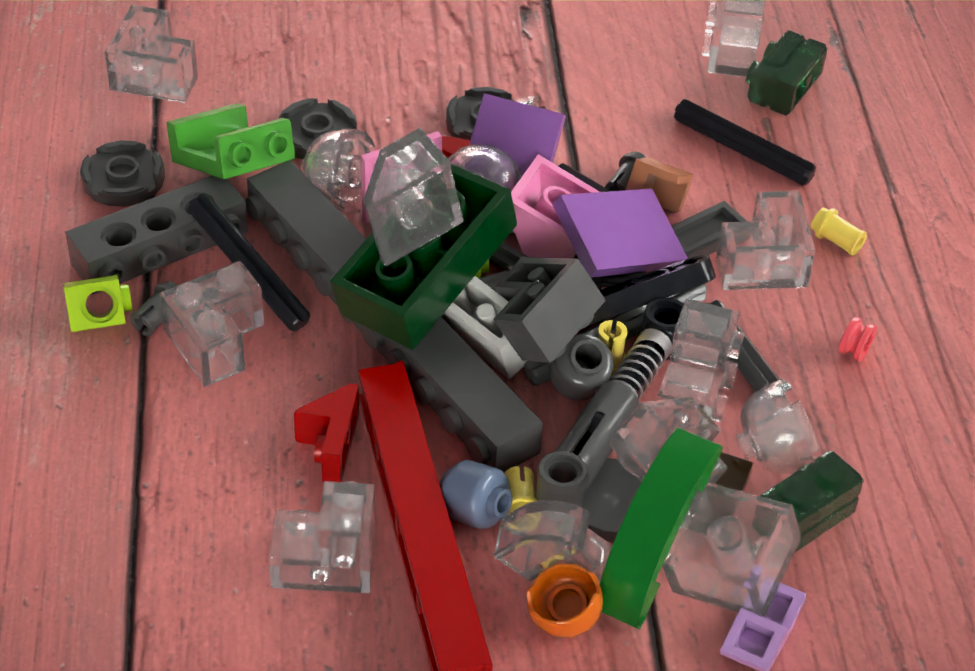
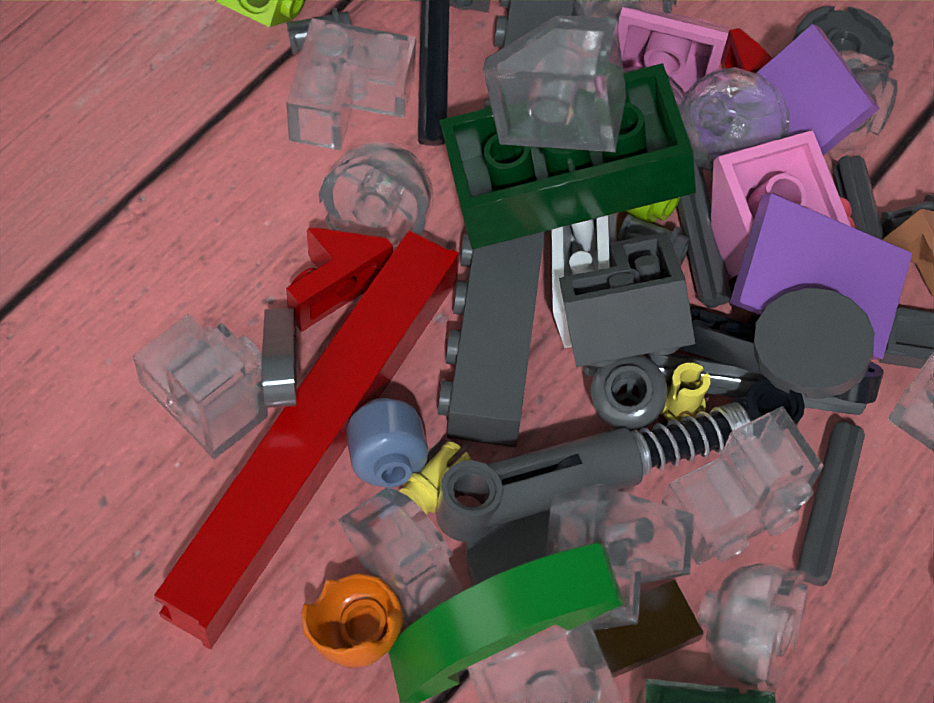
camera: 40 degrees right, 15 degrees up
(312, 363) = (378, 192): none -> clear cylinder
(392, 486) = (279, 358): none -> dark grey beam
(660, 261) = (814, 343): none -> dark grey tile

